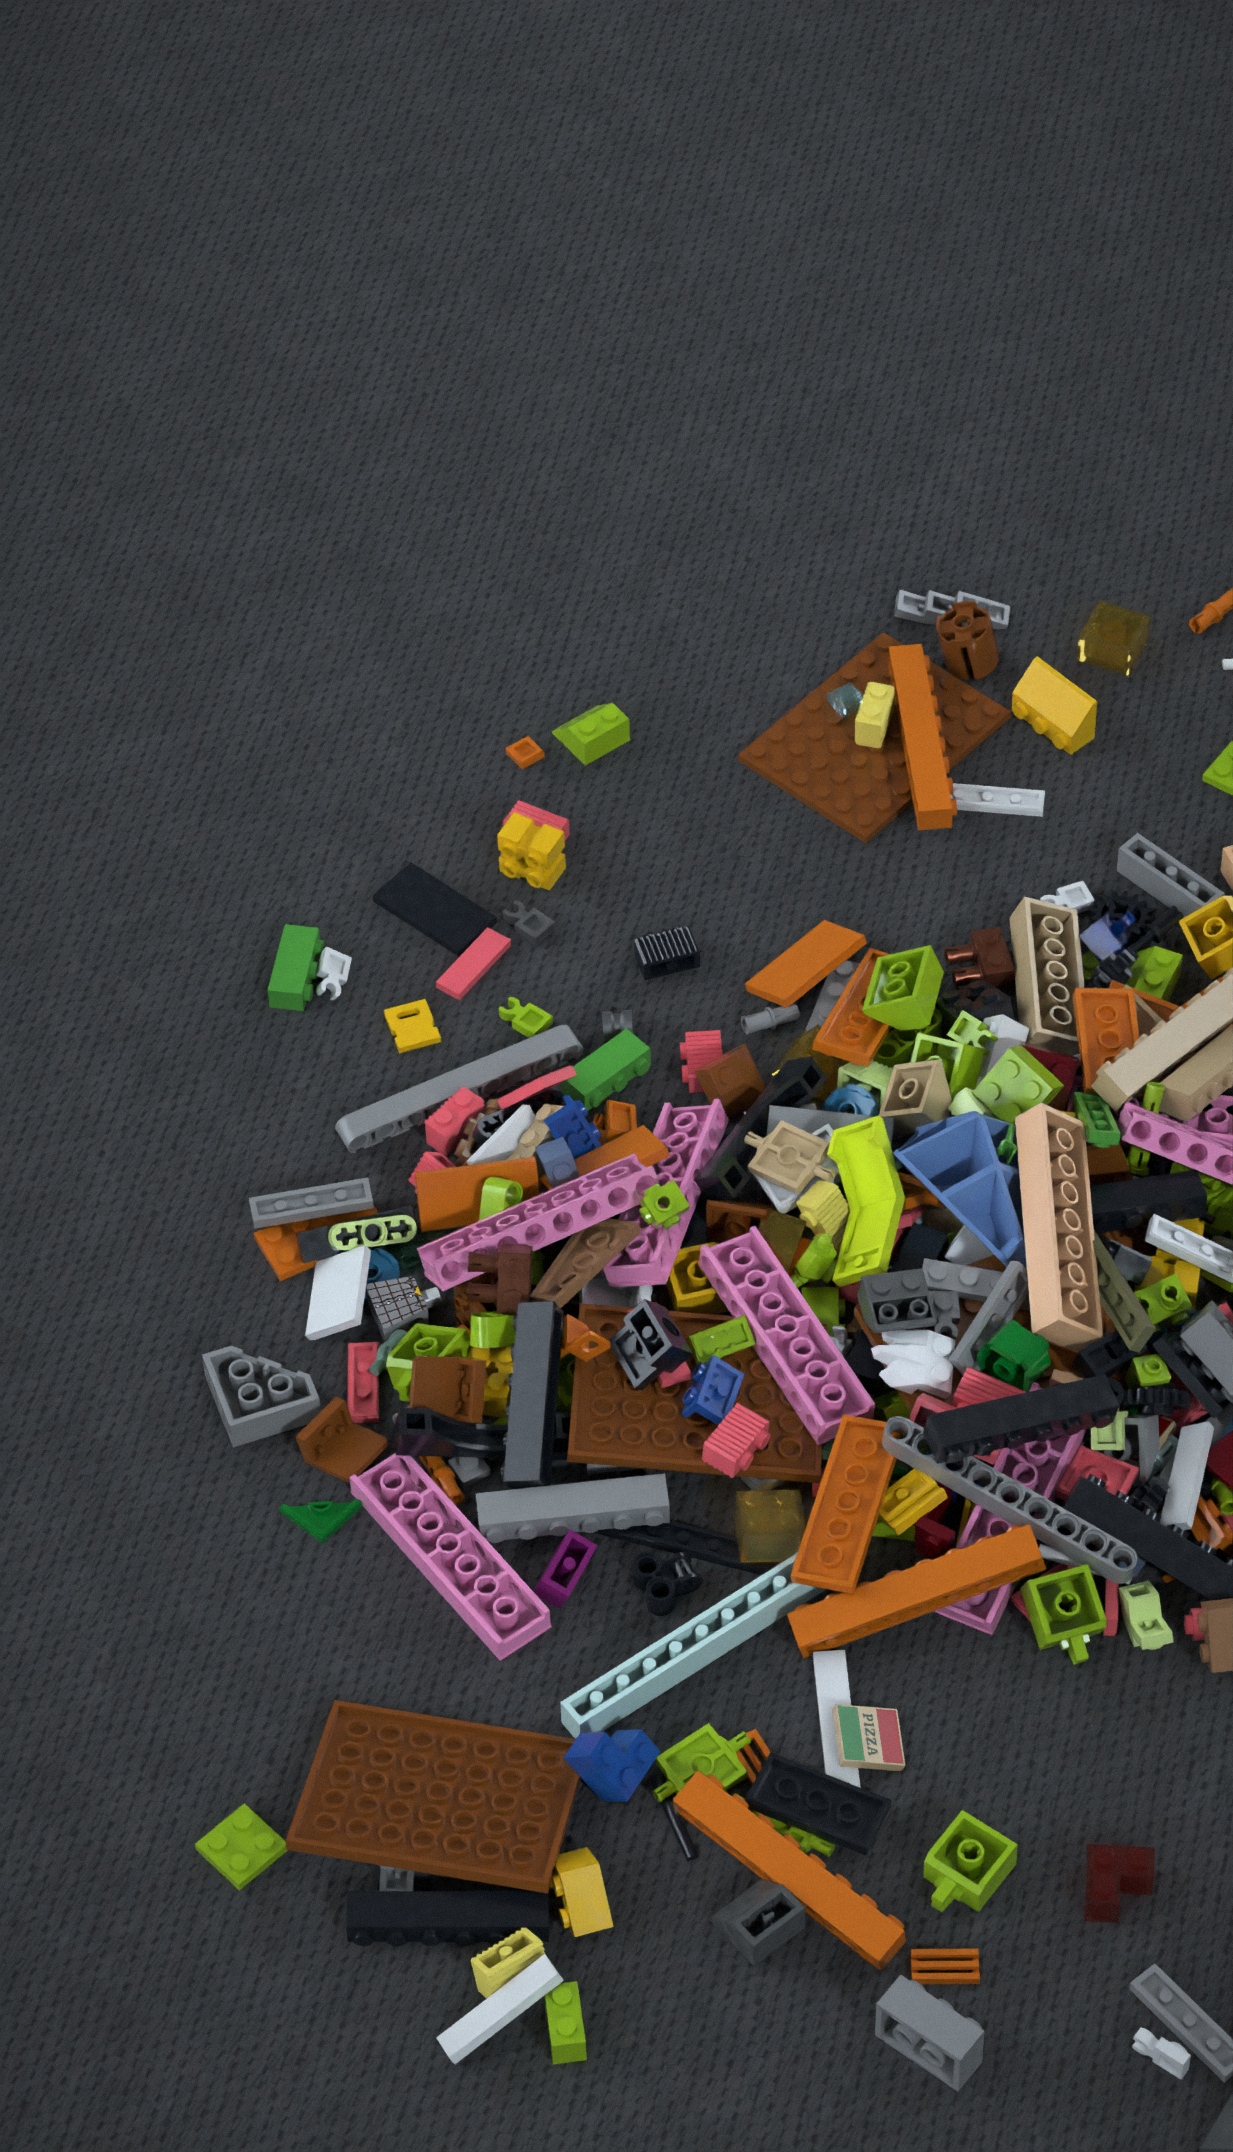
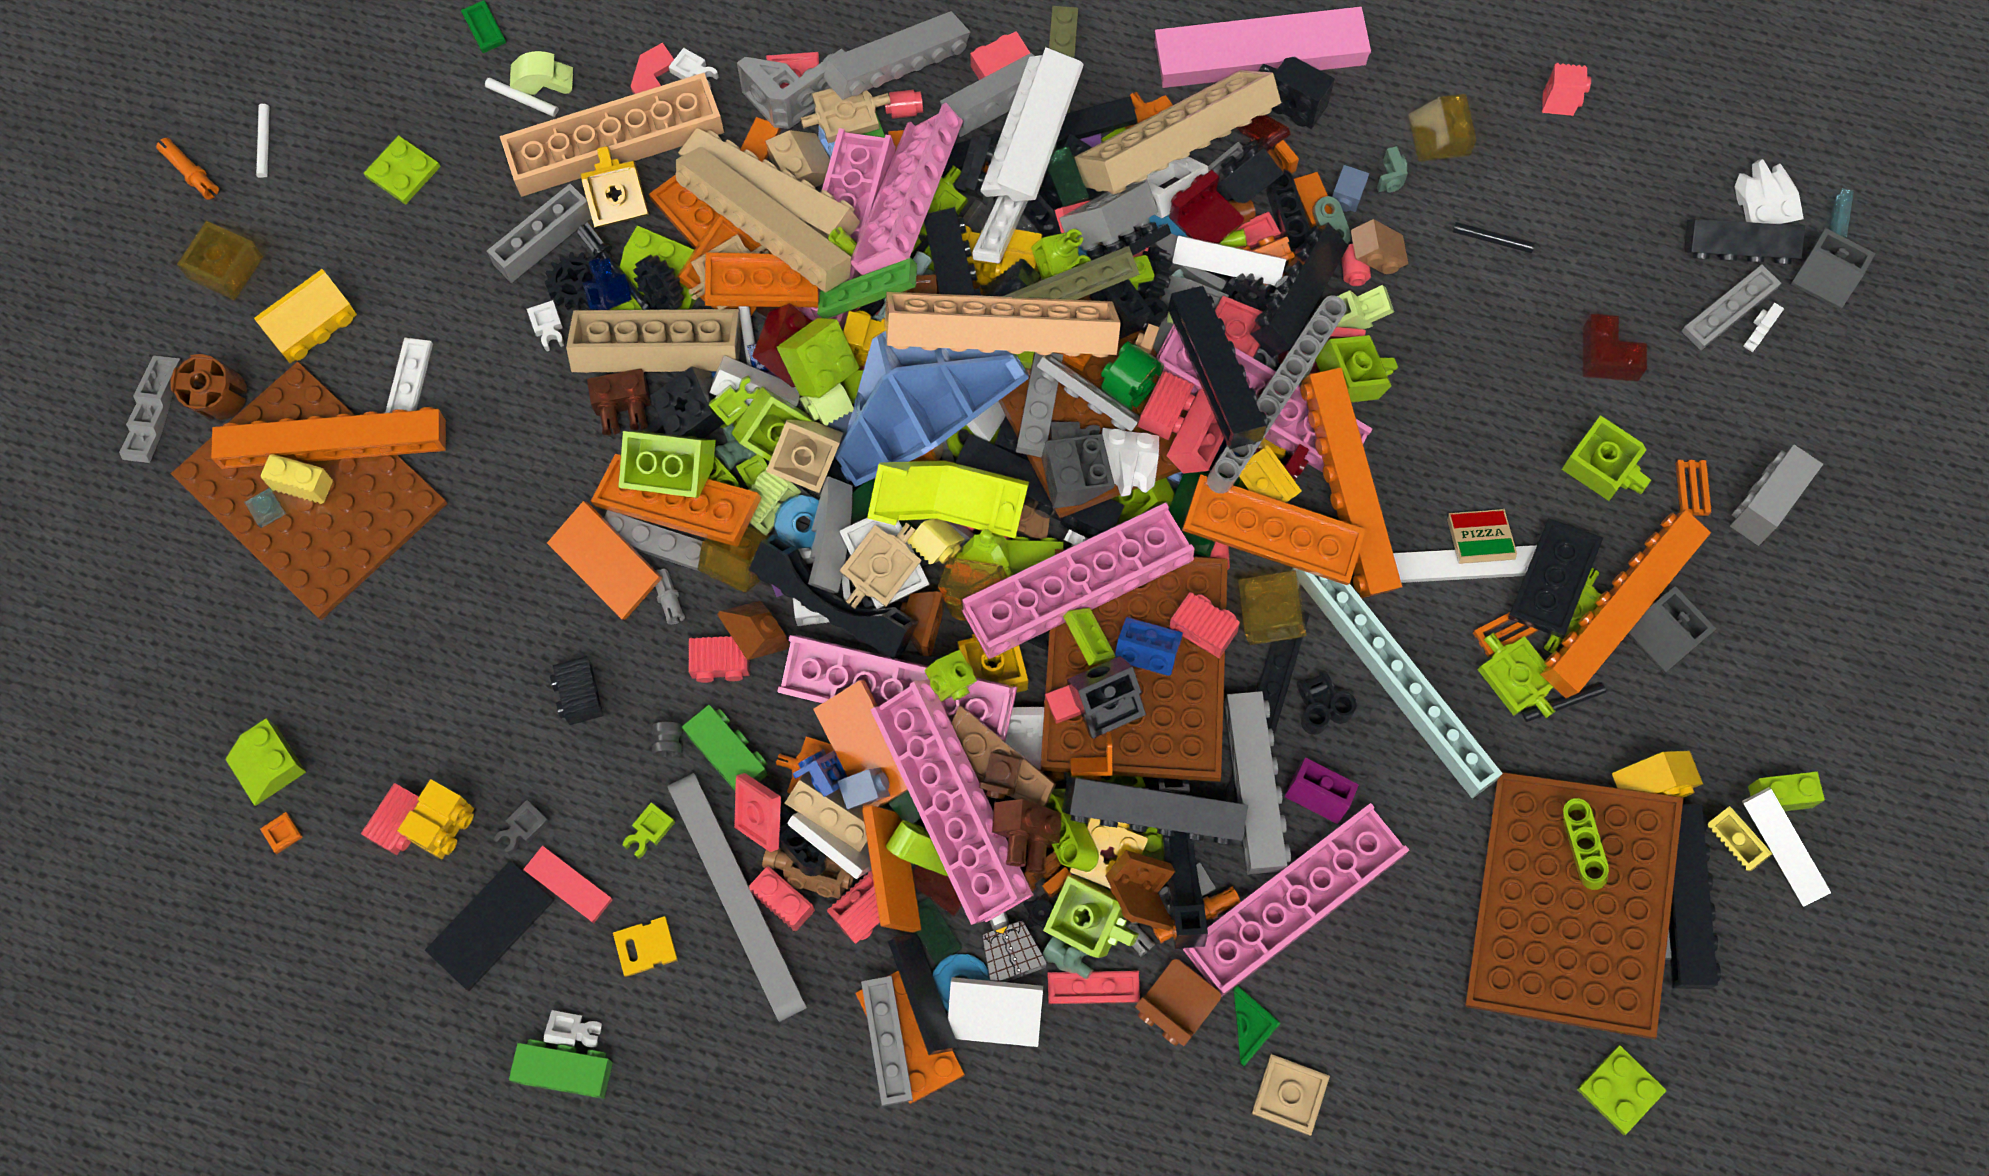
camera: 90 degrees left, 20 degrees up
(249, 1549) = (1290, 1095): none -> tan tile
(258, 1395) = (1122, 1090): light grey brick -> none
(395, 1237) = (921, 956): yellowish green beam -> none
(497, 1790) = (1585, 829): none -> lime beam
(562, 1258) = (1001, 775): none -> reddish brown bracket
(612, 1764) = (1530, 744): blue brick -> none
(619, 1119) = (793, 736): orange tile -> none
(1006, 1146) = (919, 355): bright green hand -> none

